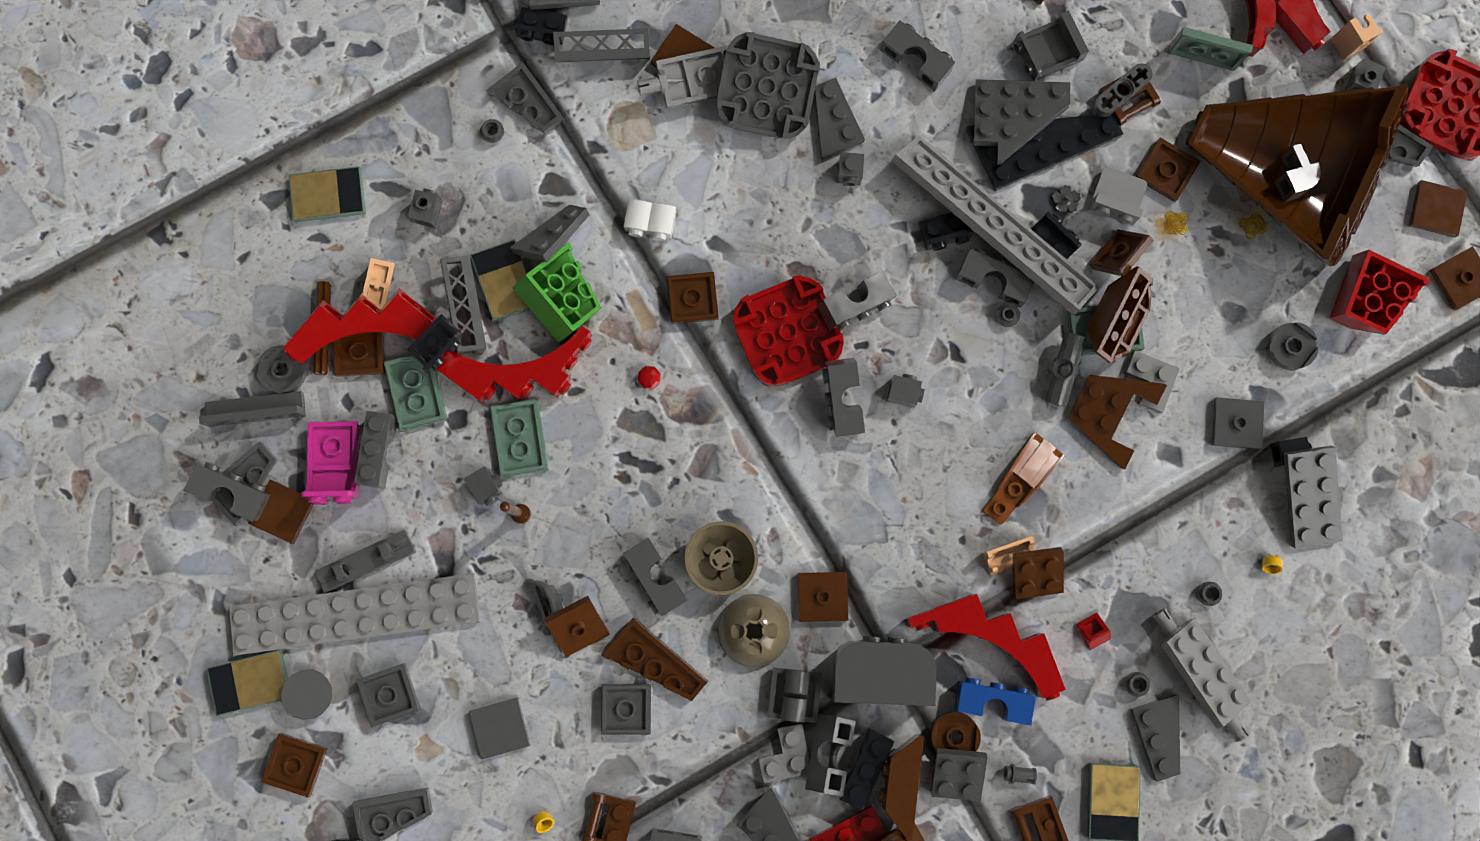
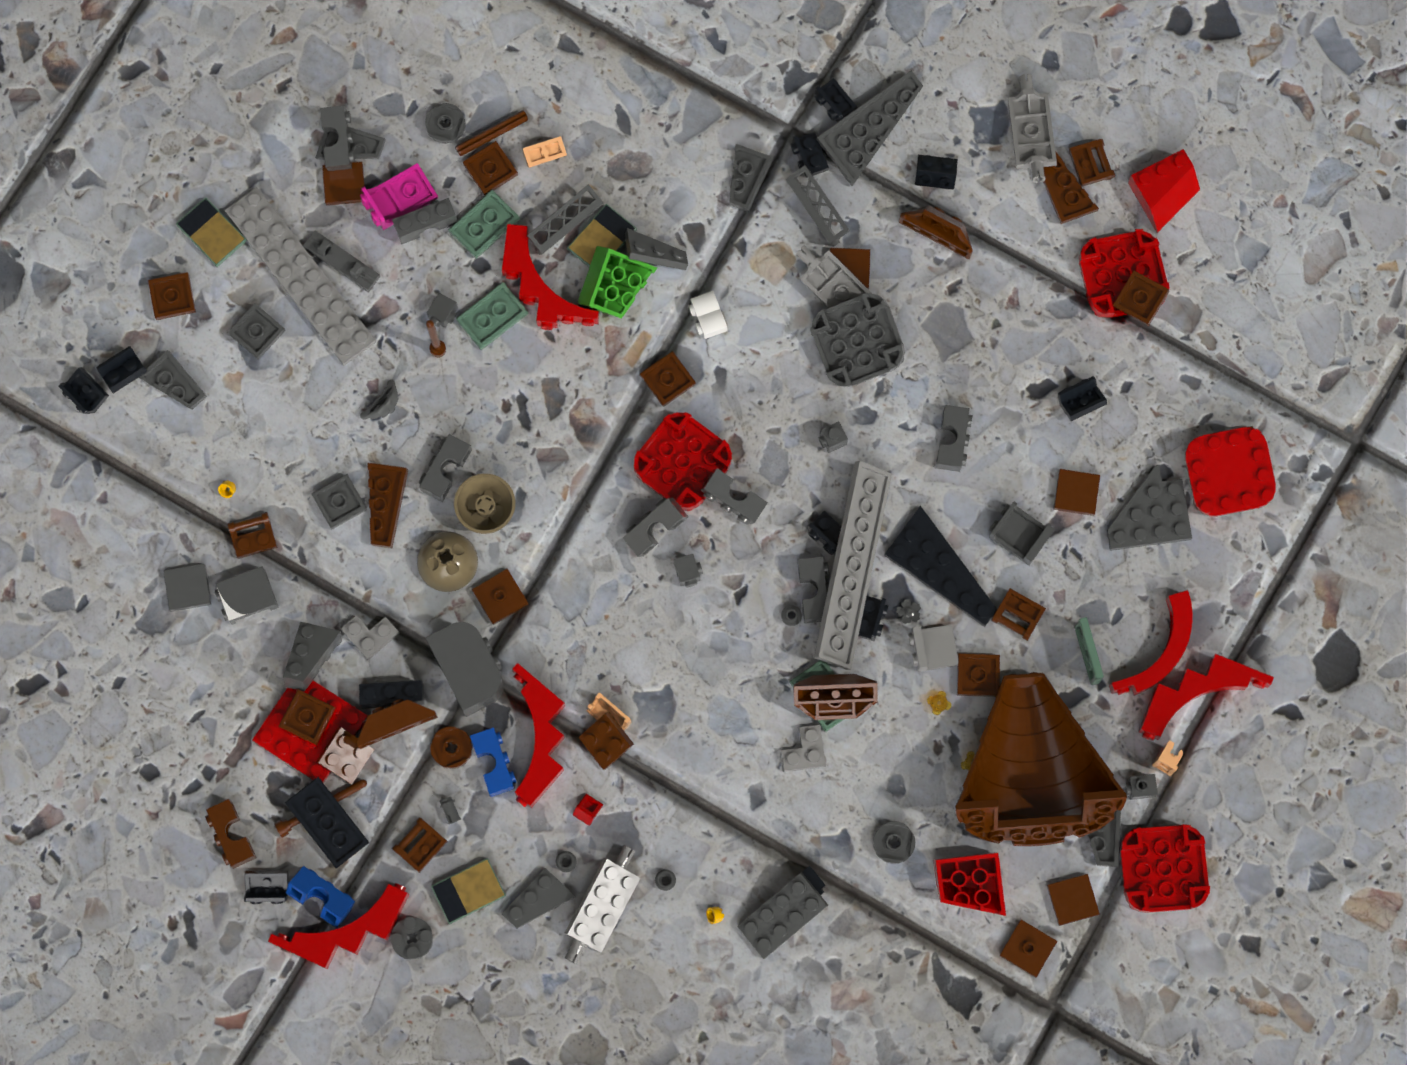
camera: 65 degrees right, 5 degrees down
(253, 409) = (406, 121): dark grey fence -> none
(306, 694) = (225, 275): dark grey tile -> none
(325, 324) = (529, 180): red arch -> none
(327, 194) = (592, 79): tile -> none
(425, 208) = (622, 152): dark grey brick -> none
(435, 342) = (524, 215): black bracket -> none
(492, 124) = (708, 160): dark grey plate -> none
(499, 728) = (276, 422): dark grey tile -> none
(576, 626) = (378, 432): reddish brown plate -> none
(649, 377) = (590, 382): red tile -> none
(794, 695) = (416, 615): dark grey plate -> none
(823, 770) = (373, 664): dark grey arch -> none
(835, 120) = (867, 406): dark grey wing -> none
(958, 774) = (424, 763): dark grey plate -> none
(1015, 111) = (952, 534): dark grey wing -> none
(1023, 477) = (674, 695): dark orange piece -> none
(1070, 354) = (762, 681): dark grey piece -> none
(1103, 406) = (761, 723): reddish brown wing -> none
(1121, 252) = (887, 670): reddish brown tile -> none
(1125, 80) = (1000, 604): dark grey beam -> none
(1238, 423) = (809, 833): dark grey plate -> none
(1299, 176) = (1026, 775): brick -> none

